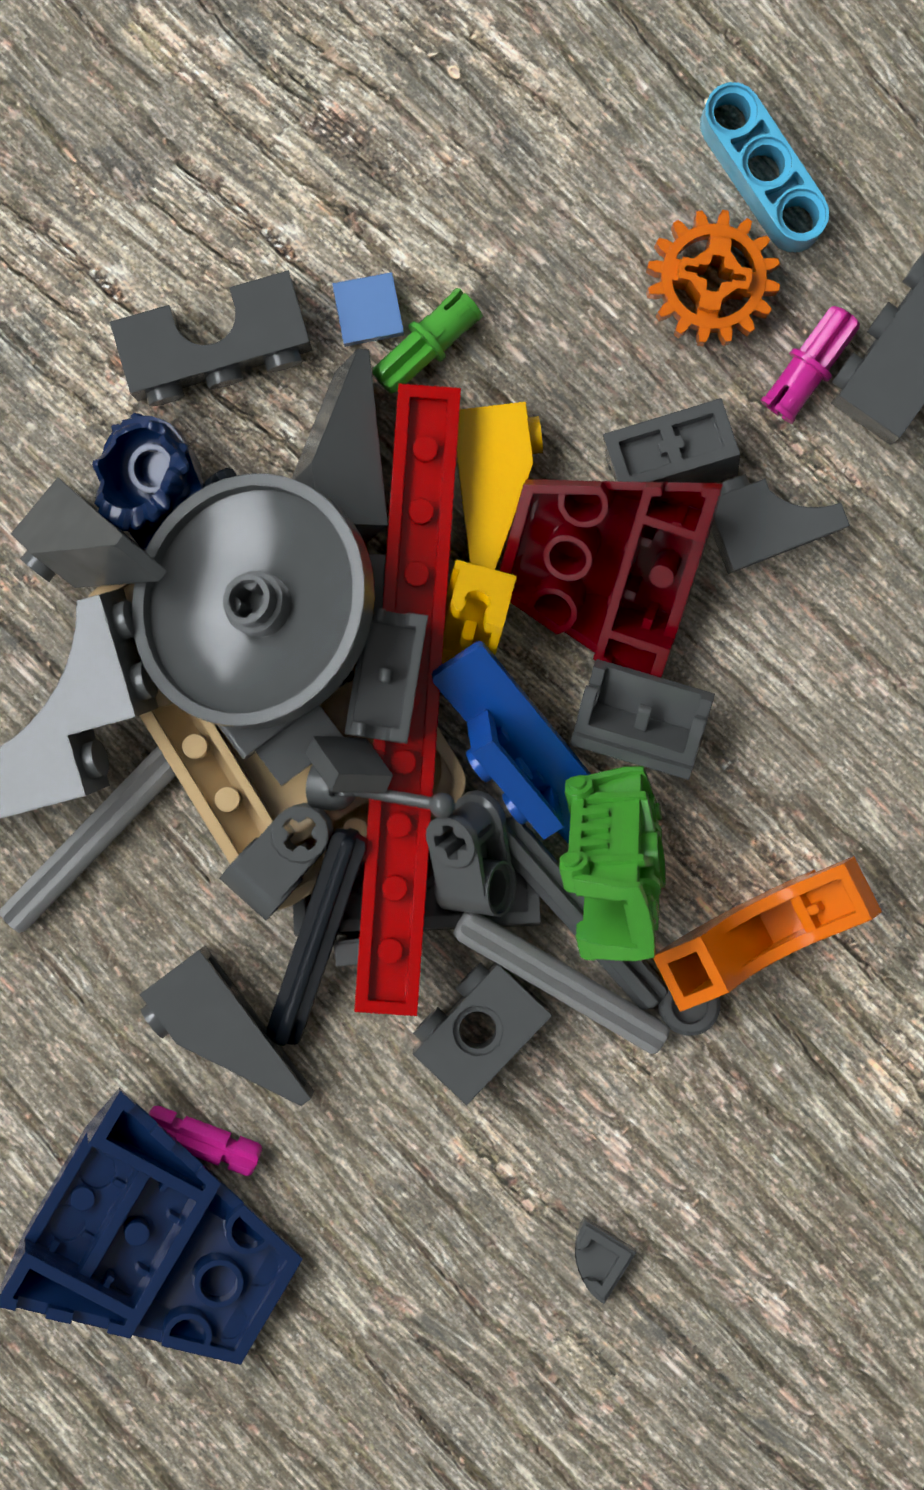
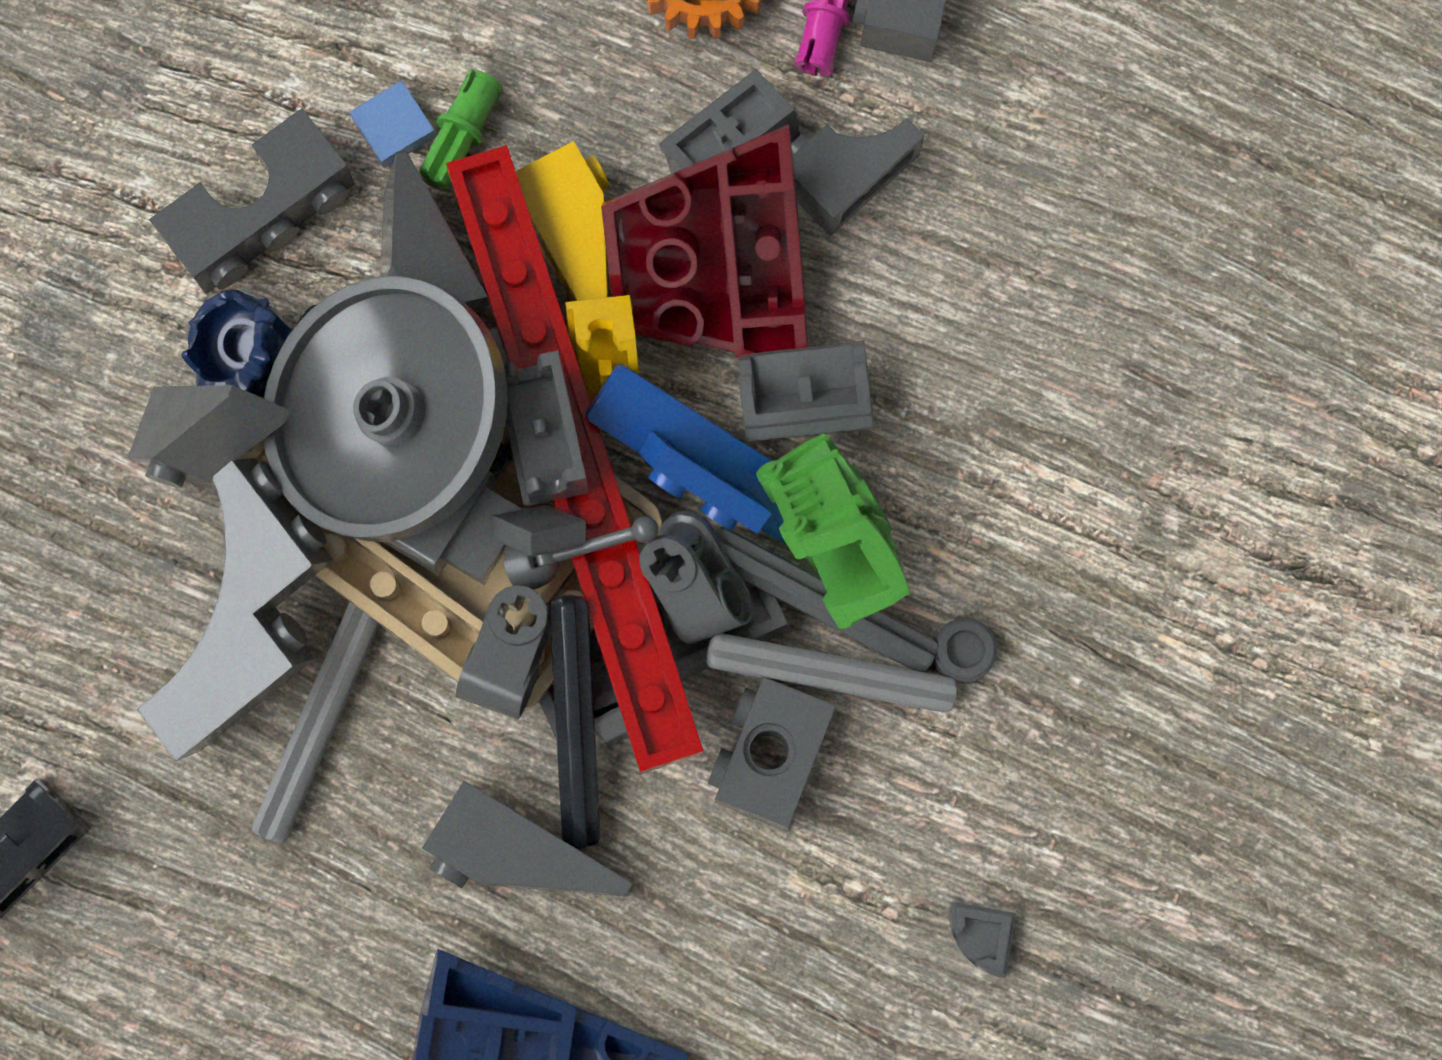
camera: 20 degrees left, 10 degrees down
(210, 1141) = (554, 976): dark pink axle -> none
(764, 930) = (1009, 542): orange arch -> none

